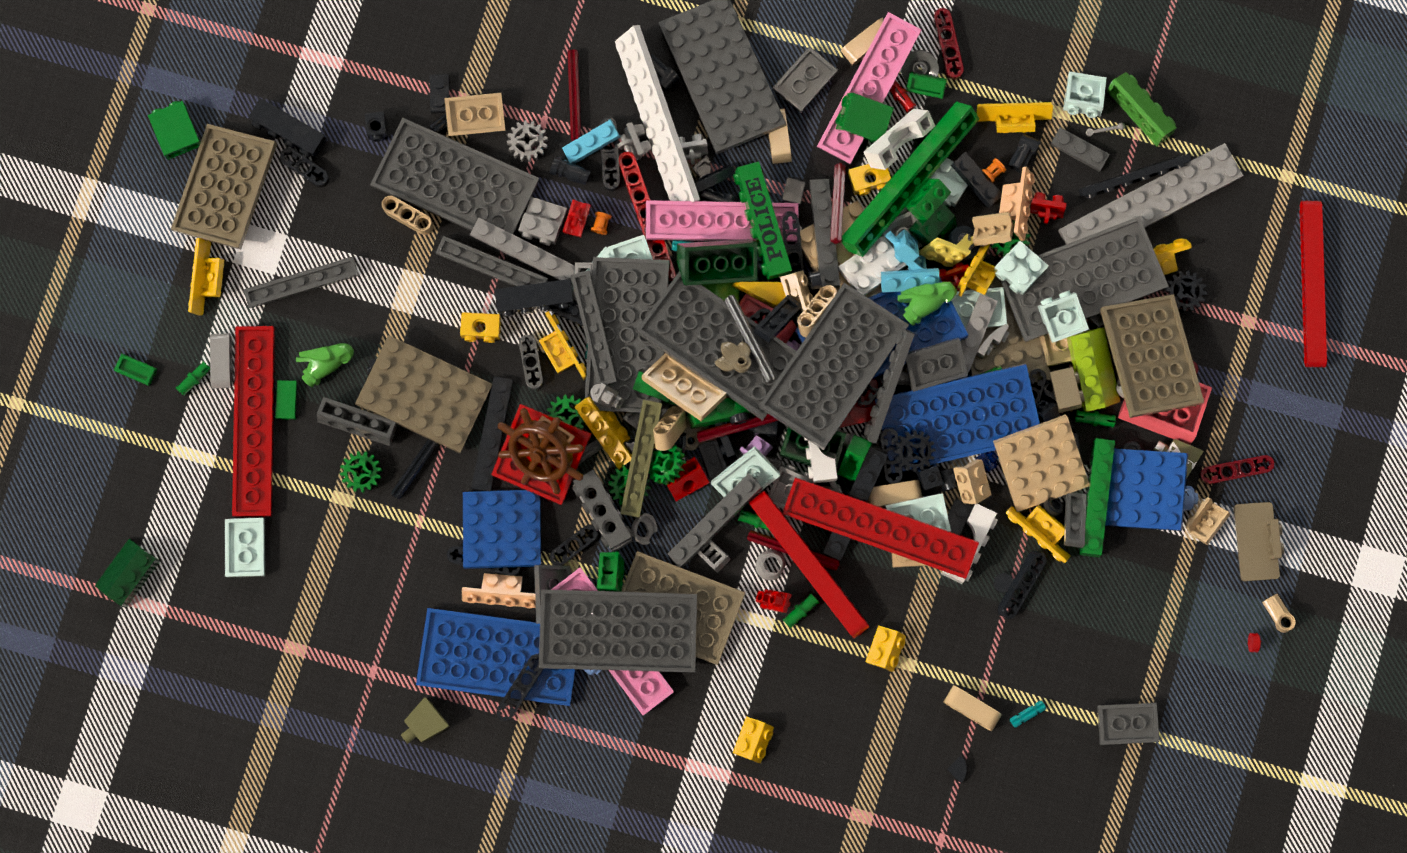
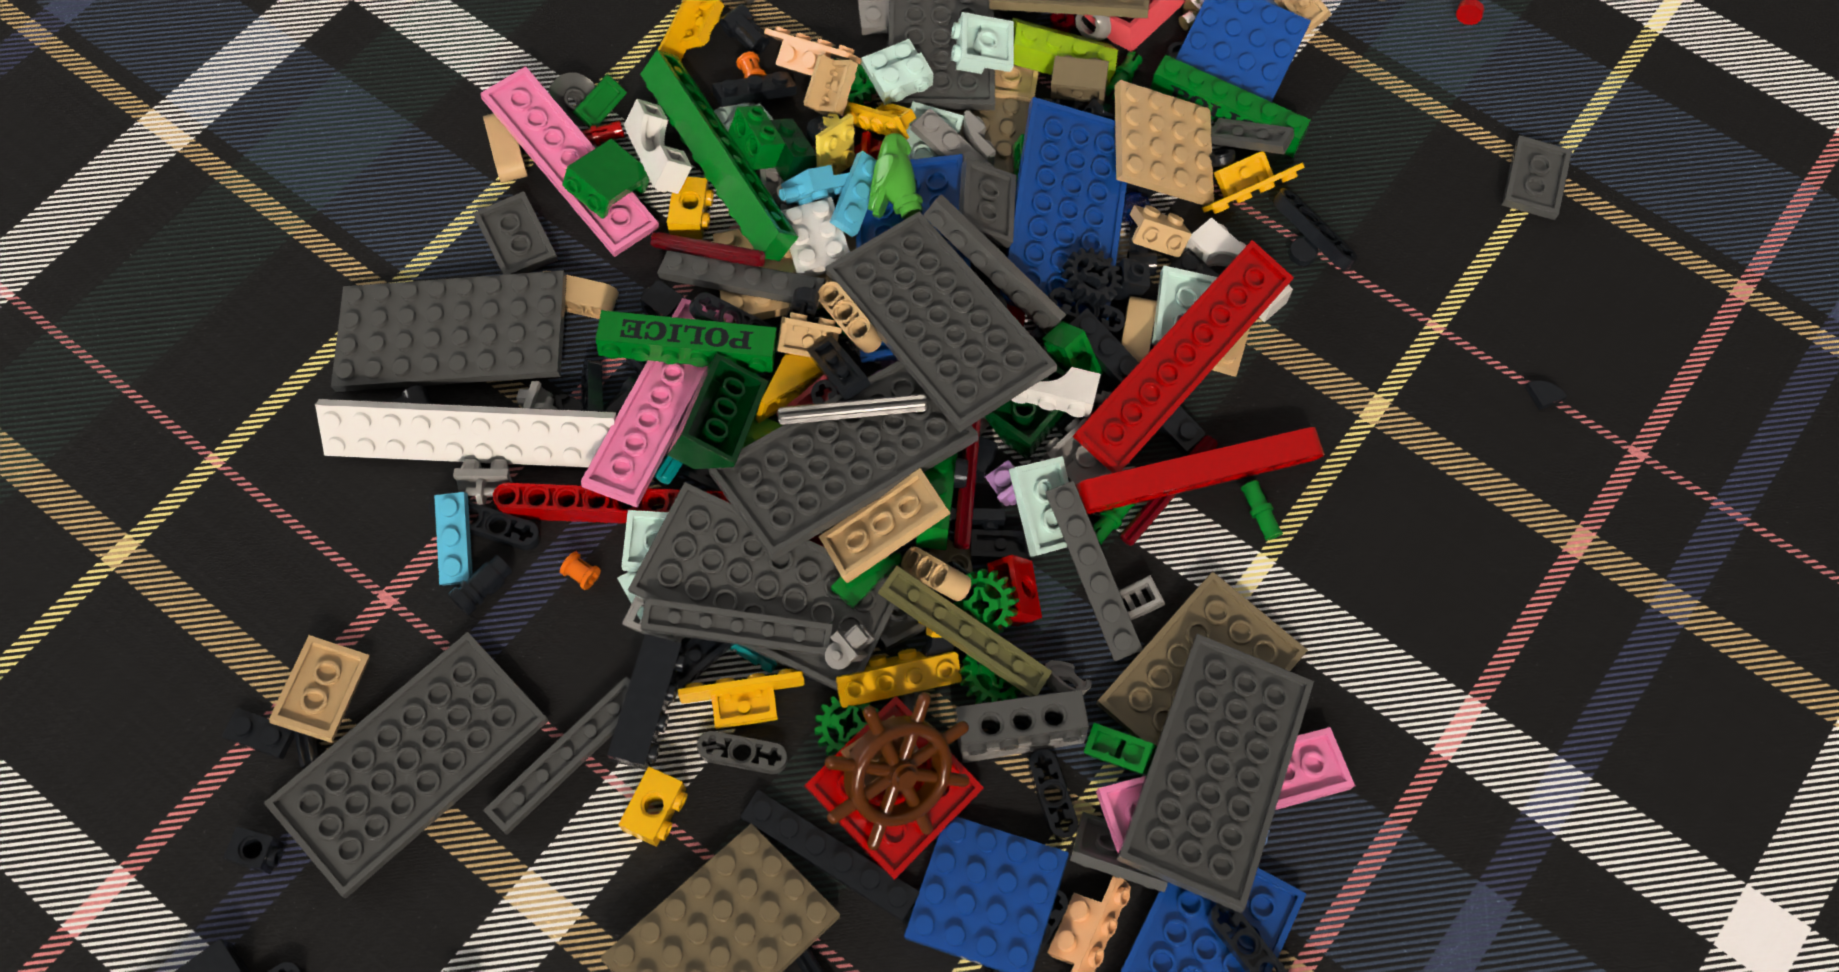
camera: 75 degrees left, 15 degrees down
(401, 208) = (405, 856): tan beam -> none
(519, 141) = (403, 641): light grey gear -> none
(522, 250) = (564, 697): light grey plate -> none
(542, 221) = (535, 654): light grey plate -> none
(574, 97) = (370, 538): dark red axle -> none
(576, 218) = (556, 600): red hips -> none
(732, 355) = (870, 437): dark tan plate -> none
(753, 739) = (1433, 644): yellow bracket -> none
(762, 572) = (1173, 539): light grey piece -> none
(773, 600) = (1238, 535): red hips -> none
(886, 648) = (1349, 422): yellow bracket -> none
(949, 43) = (561, 57): dark red beam -> none
(972, 708) = (1466, 345): tan beam -> none
(1028, 713) = (1491, 285): teal axle -> none
(1046, 208) = (830, 26): red hips -> none

